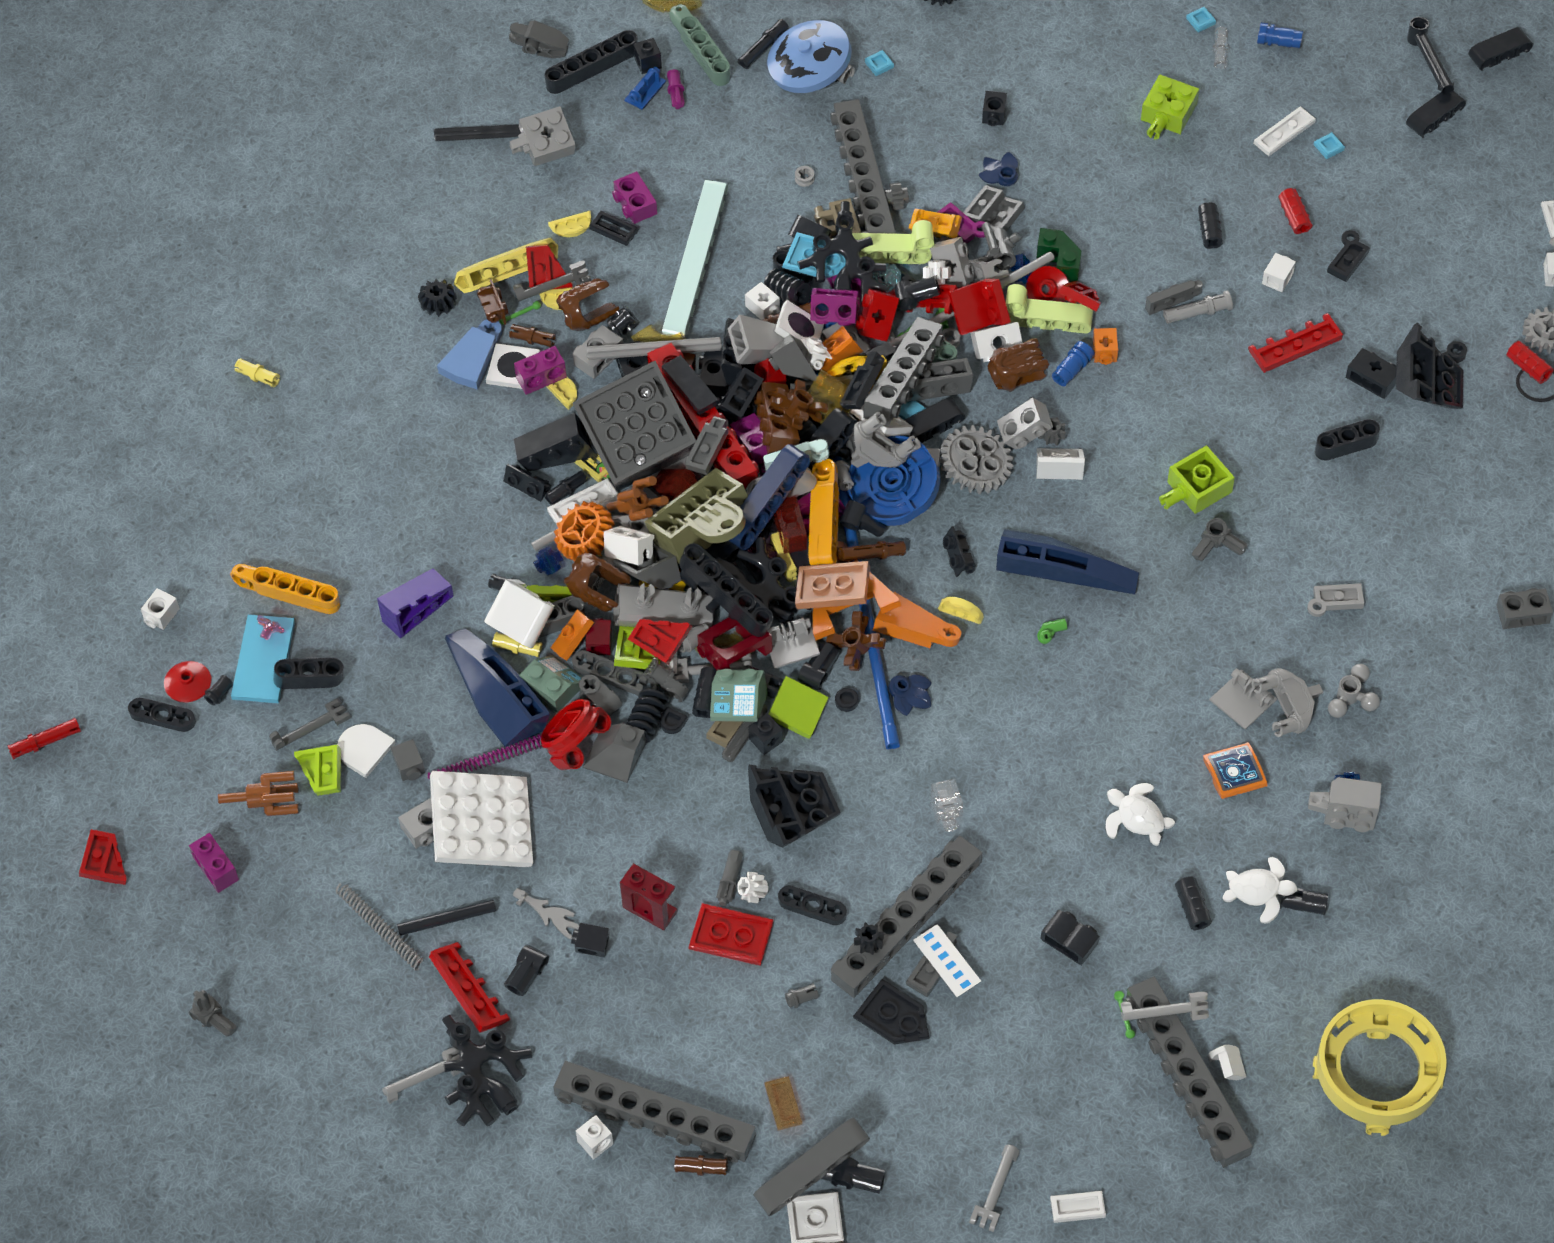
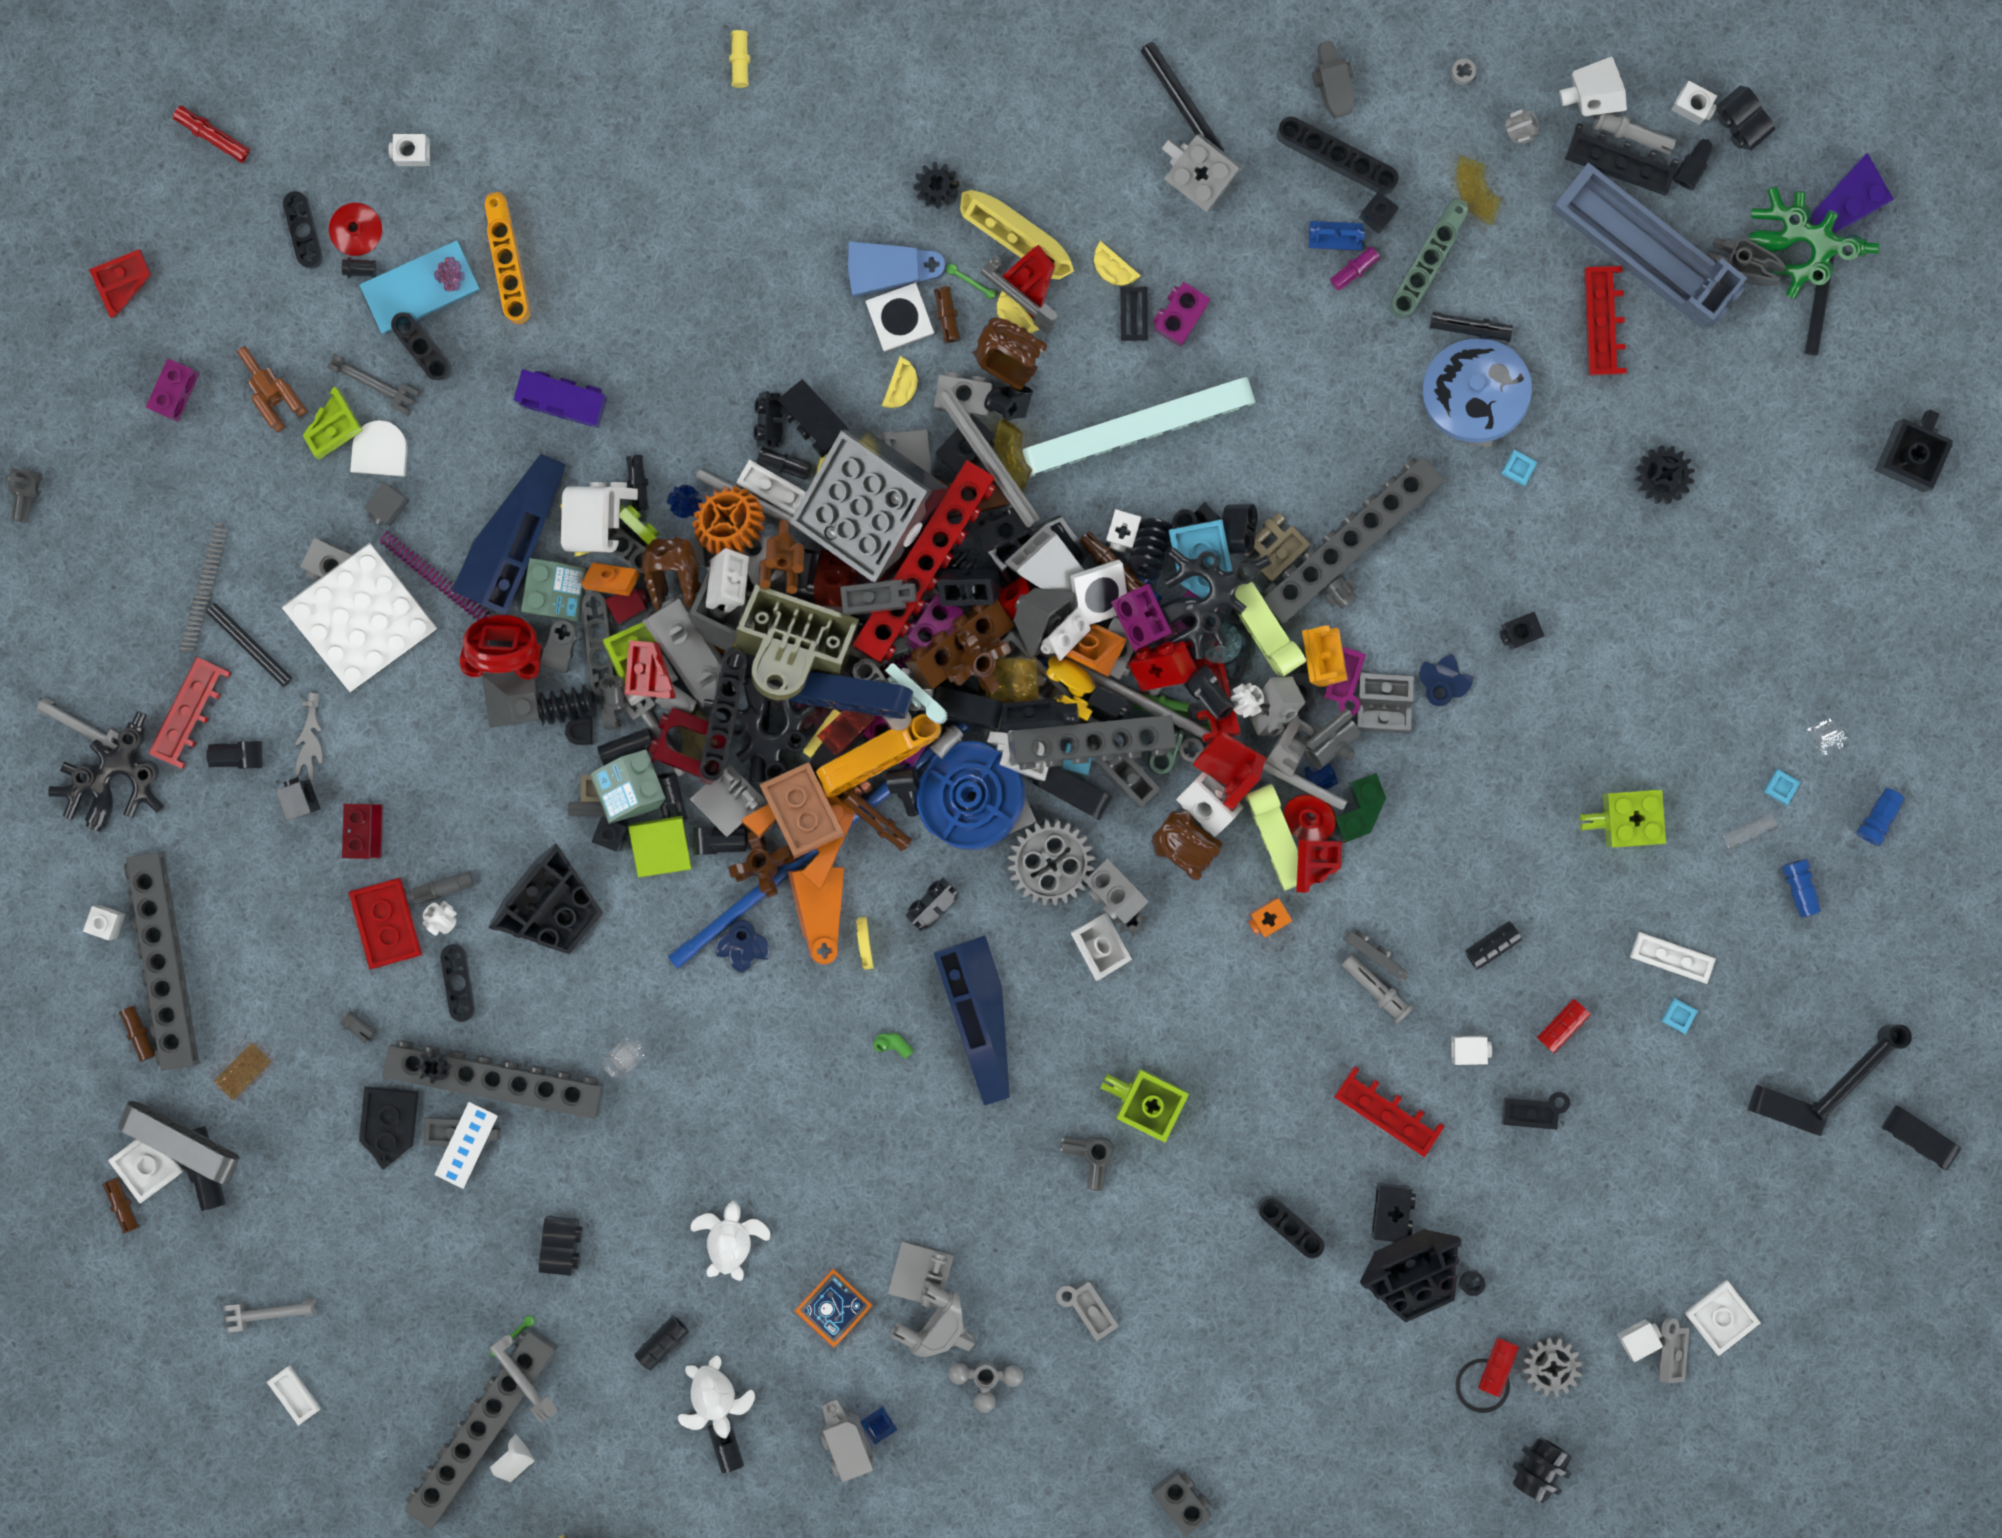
camera: 60 degrees right, 30 degrees up
(491, 301) = (967, 243): reddish brown hinge -> none
(540, 370) = (899, 354): magenta brick -> none
(690, 385) = (946, 531): black tile -> none
(801, 171) = (1310, 471): light grey bush -> none
(846, 699) = (700, 887): black tile -> none
(878, 449) = (984, 771): light grey connector -> none
(1077, 358) = (1227, 895): blue axle -> none

